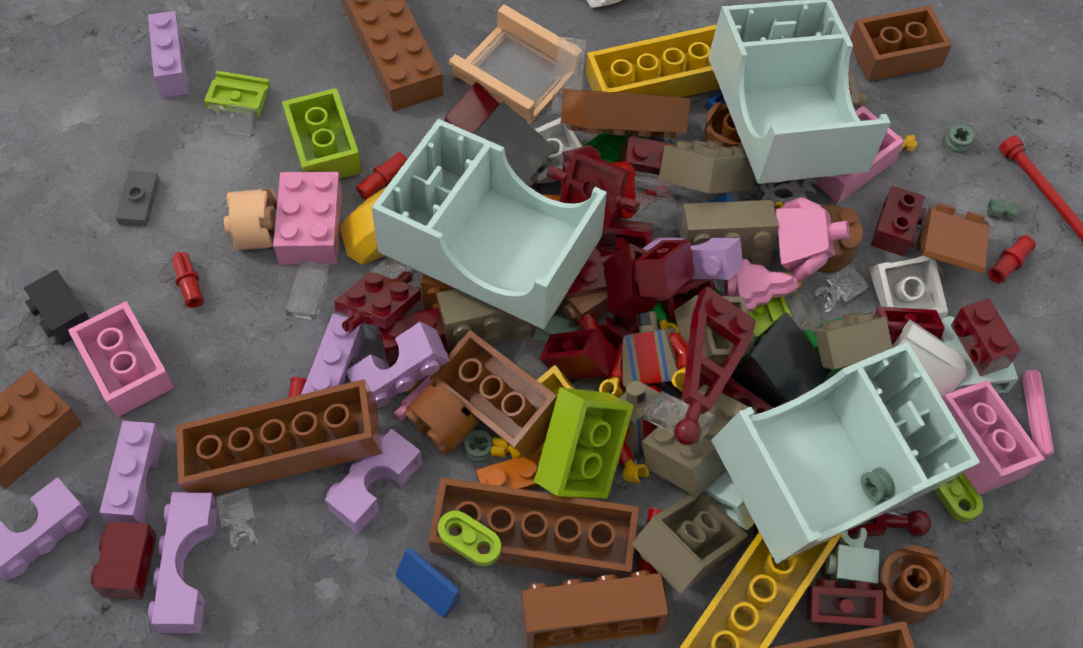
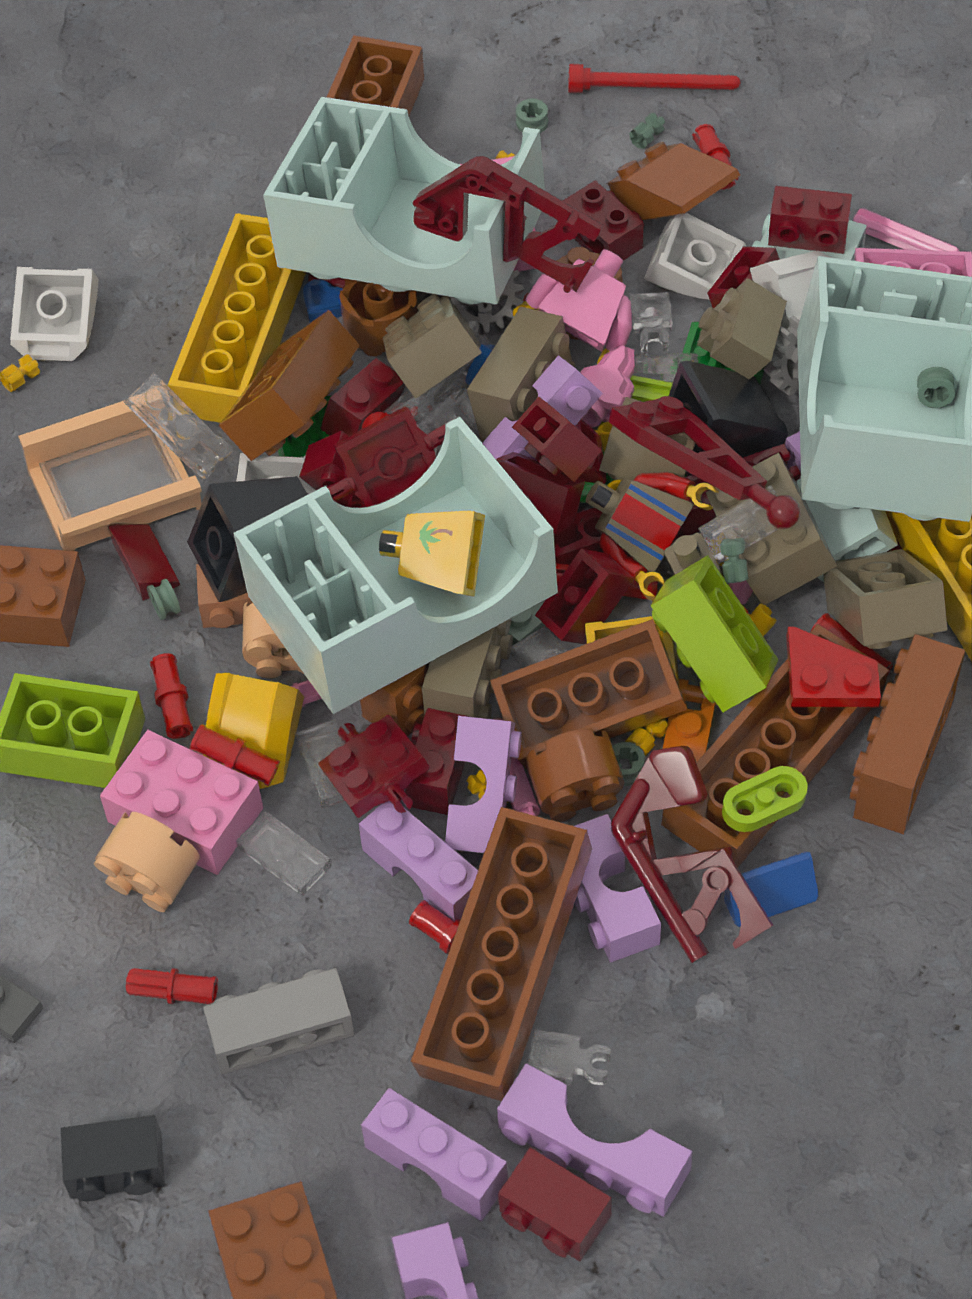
camera: 55 degrees left, 5 degrees down
(121, 359) = (255, 1101): bright pink brick -> none
(188, 344) = (278, 1020): none -> light grey brick
(346, 224) = (234, 754): none -> red pin
(446, 473) = (669, 781): none -> piece
(515, 242) = (438, 549): none -> yellow torso
(599, 532) = (829, 673): none -> red wing
(640, 428) = (735, 568): none -> sand green piece
(814, 110) = (444, 212): none -> dark red piece

